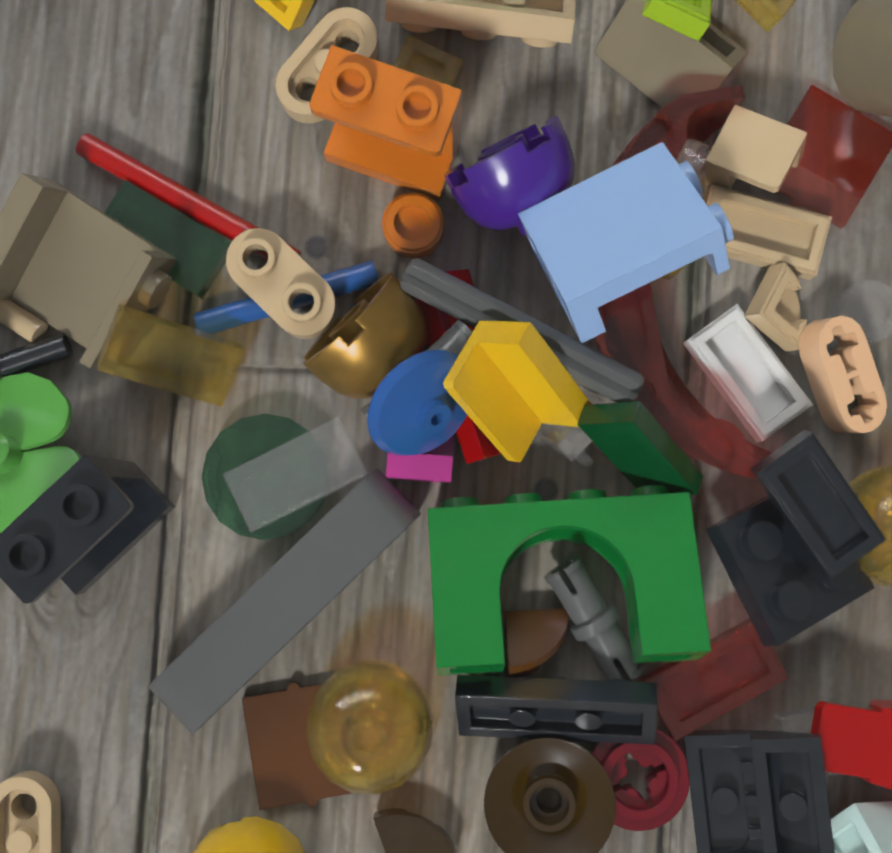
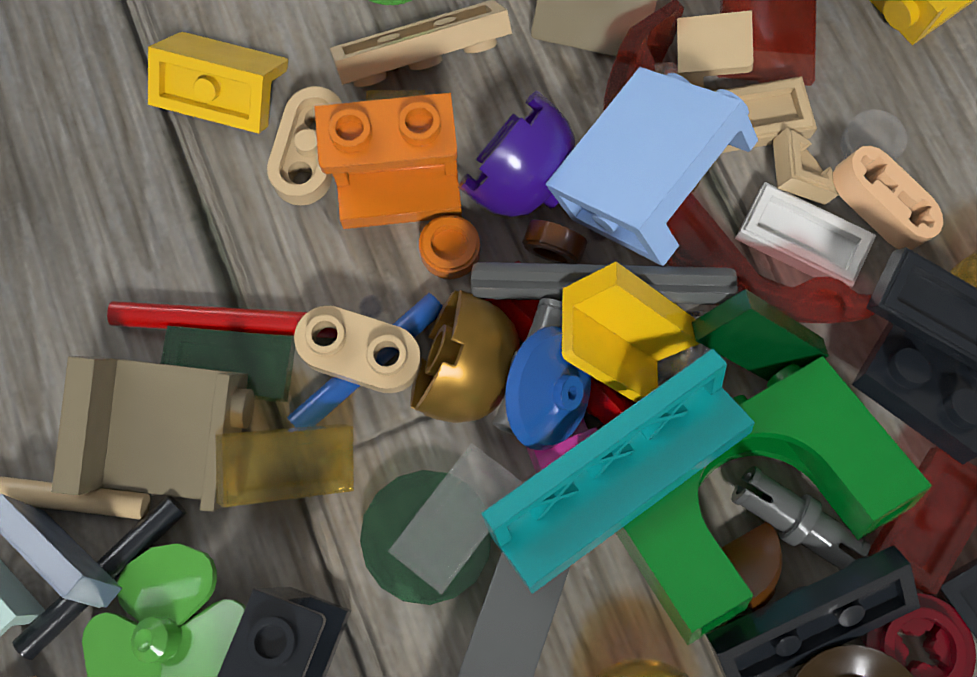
camera: 30 degrees left, 10 degrees down
(448, 505) = (617, 472): none -> teal fence
(507, 269) = (554, 242): none -> reddish brown tile

